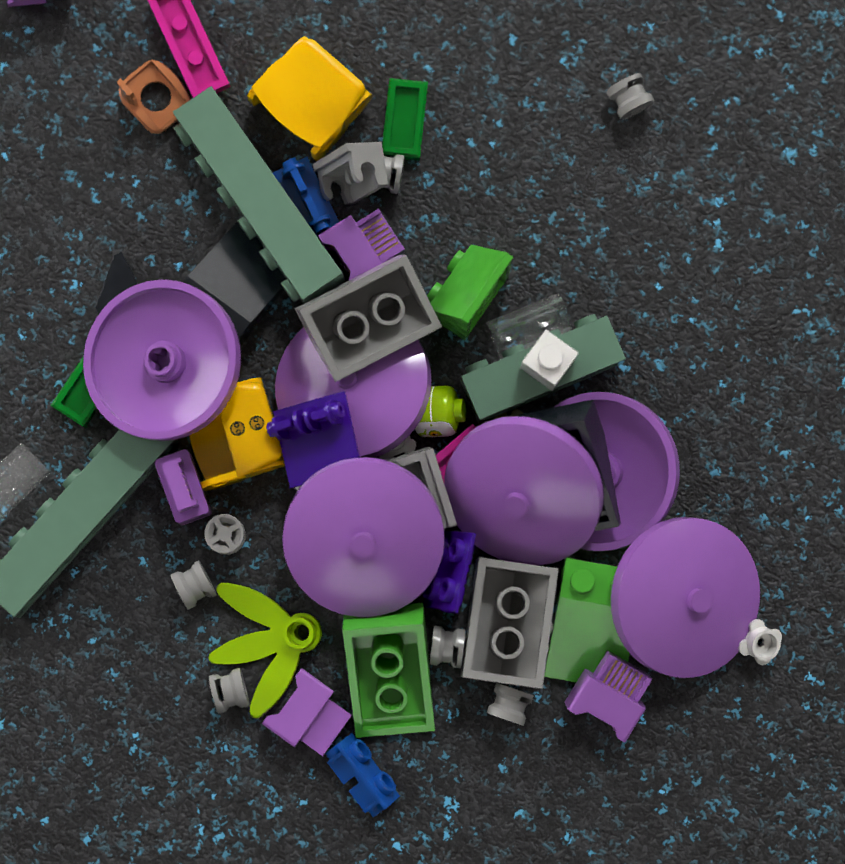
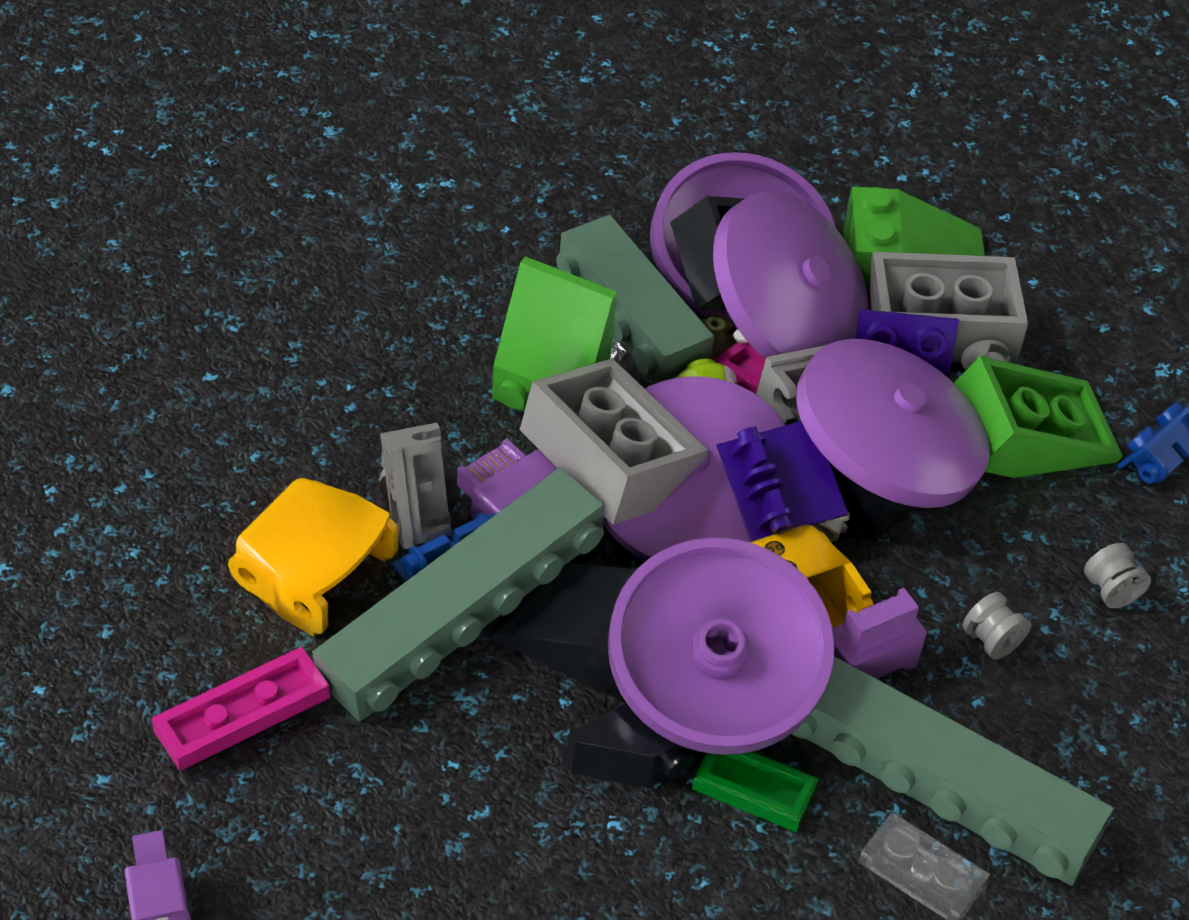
camera: 100 degrees left, 35 degrees down
(132, 87) = (341, 727): nougat piece -> none
(219, 534) = (929, 592): light grey wheel -> none
(280, 639) = (1033, 540): lime plant -> none
(309, 715) = (1114, 496): medium lavender piece -> none
(404, 118) = (341, 466): green tile -> none
(510, 704) = (1040, 310): light grey wheel -> none
(549, 360) = (633, 258): white brick -> none
(611, 694) = (994, 221): medium lavender piece -> none
(630, 96) = (280, 250): light grey wheel -> none
(685, 597) = (868, 160): medium lavender dish -> none
(767, 649) = (892, 118): white plate -> none

